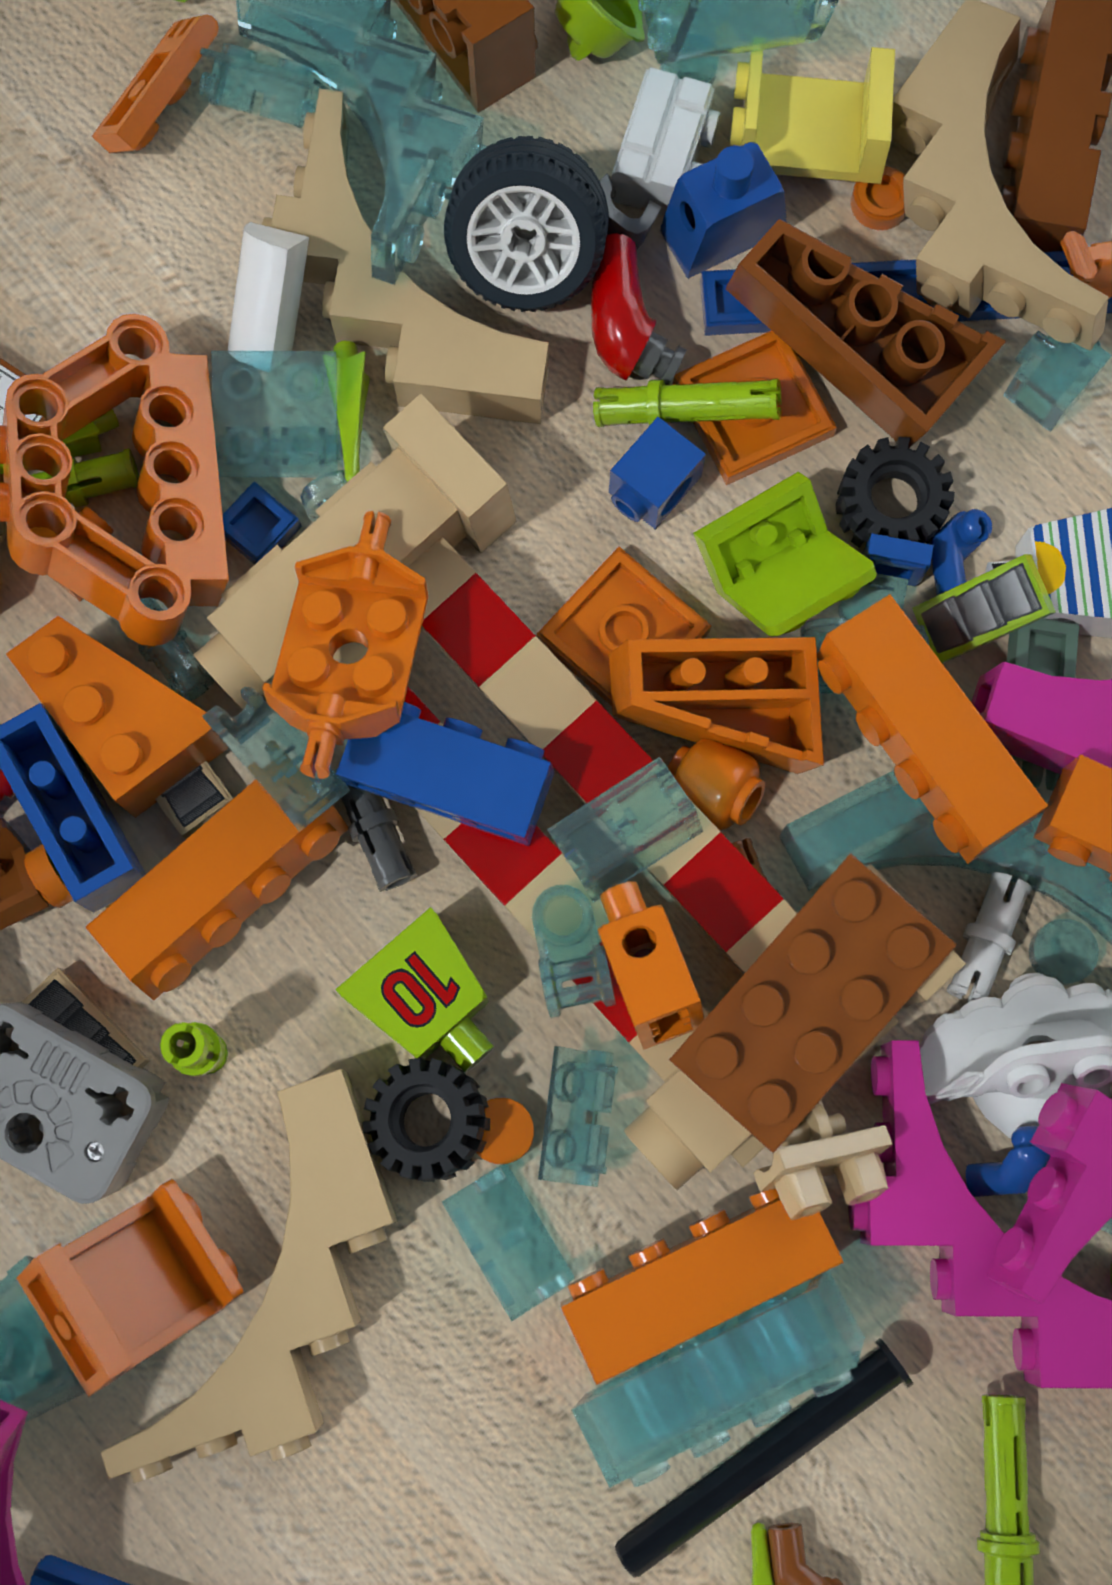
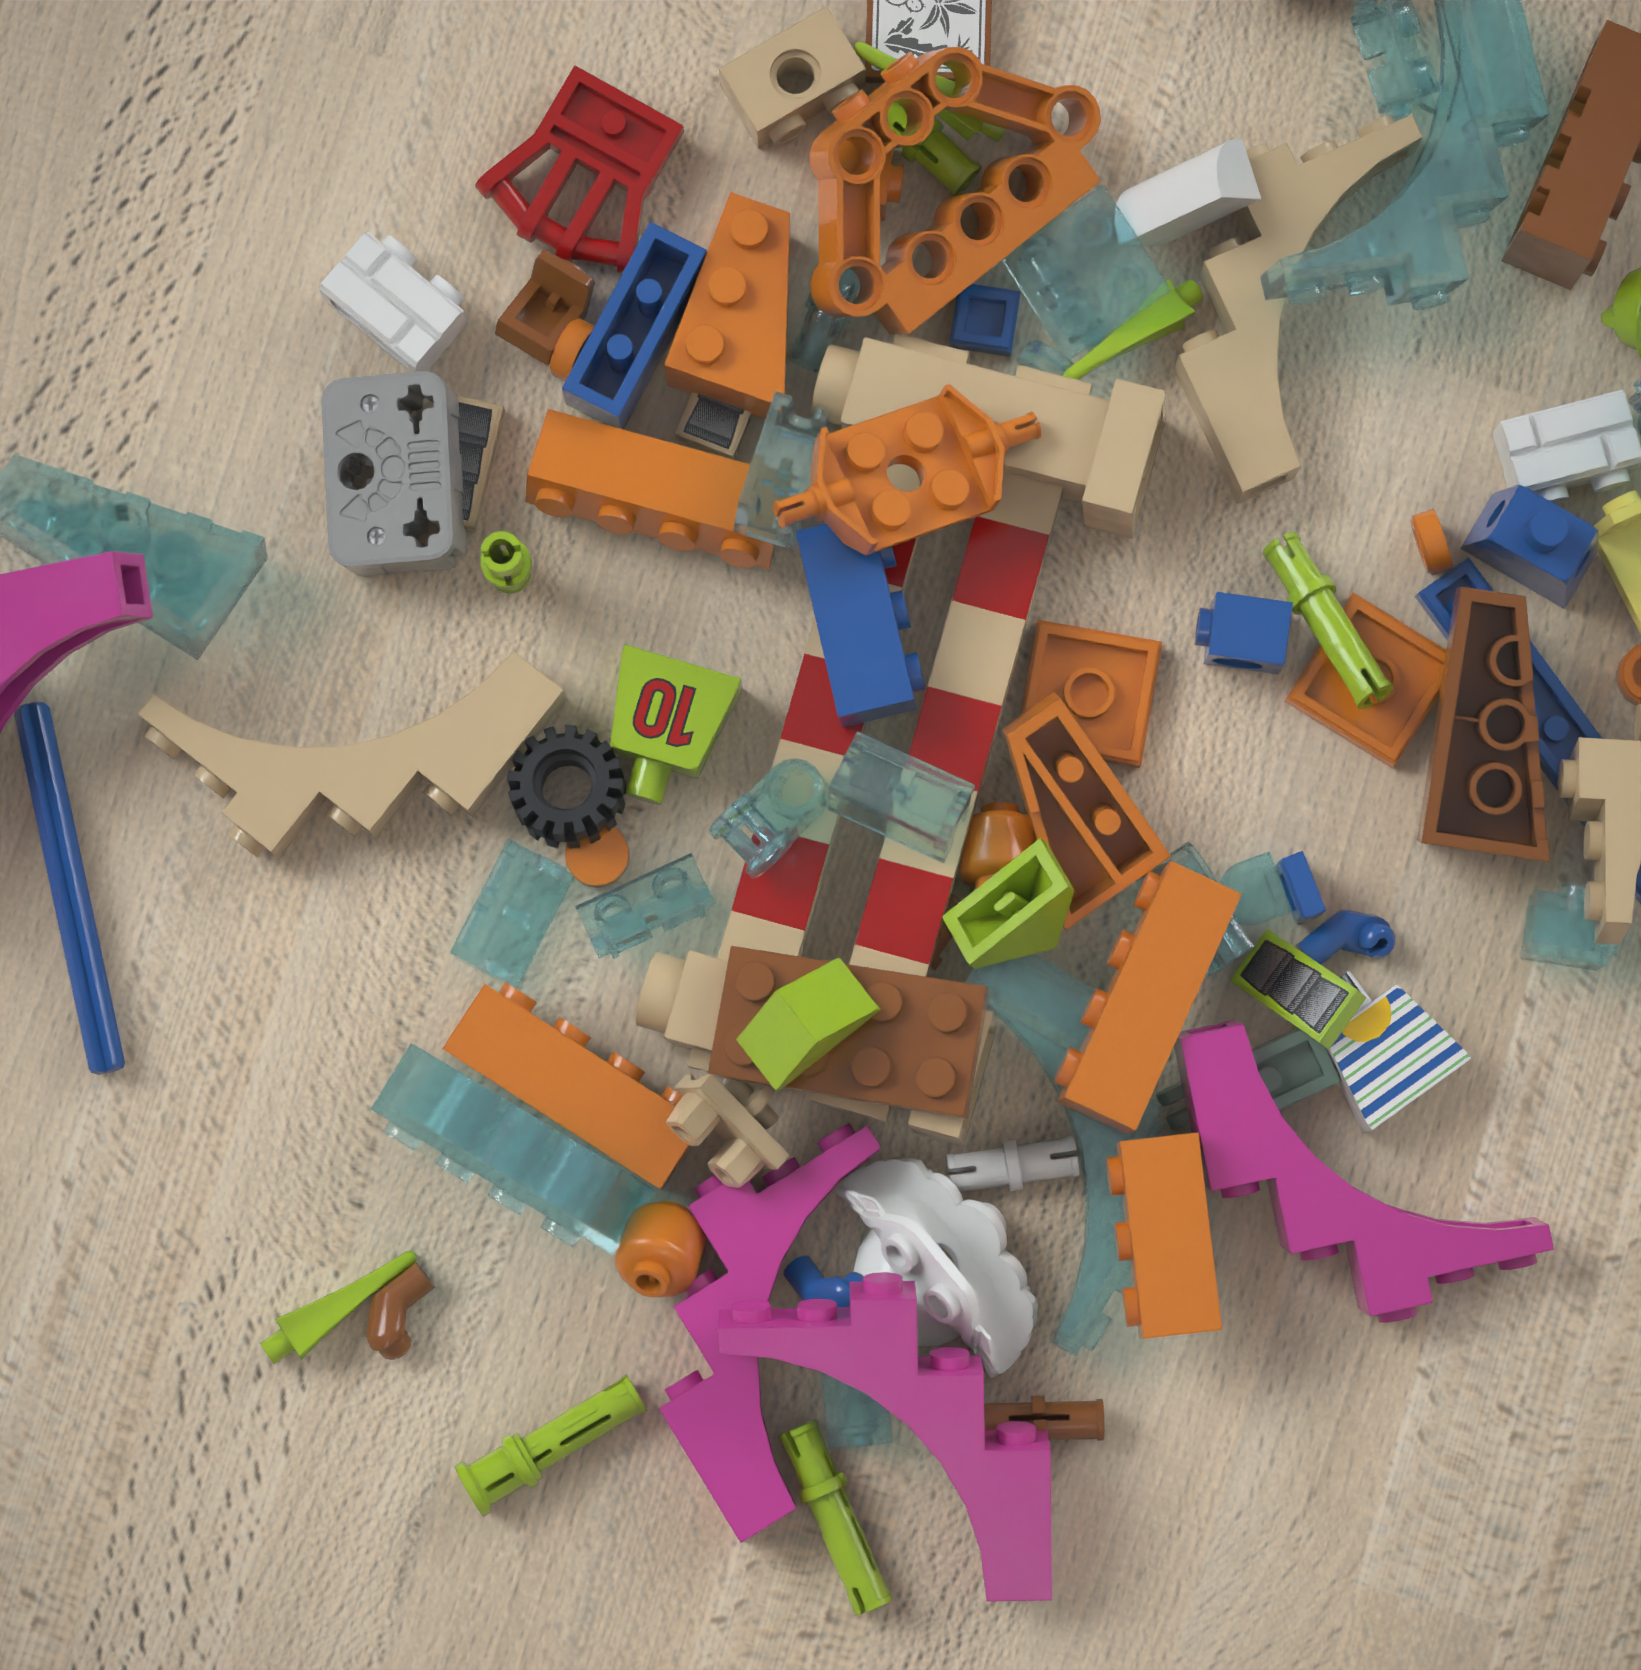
camera: 60 degrees right, 5 degrees up
(130, 1286) = (292, 635): orange panel -> none
(376, 832) = (776, 598): dark grey pin -> none
(526, 224) = (1393, 379): wheel -> none
(618, 314) = (1371, 510): red piece -> none
(656, 986) = (781, 905): orange torso -> none
(672, 289) = (1431, 542): none -> orange tile
(759, 1462) = (466, 1225): black axle -> none
(780, 559) = (1233, 788): lime bracket -> none
(783, 794) = (1014, 910): none -> lime slope
(789, 1033) = (806, 1022): none -> lime slope
(893, 1295) = (660, 1249): none -> orange head
(902, 464) = (1390, 829): black tyre -> none
(1064, 951) = (1042, 1236): clear light blue tile -> none

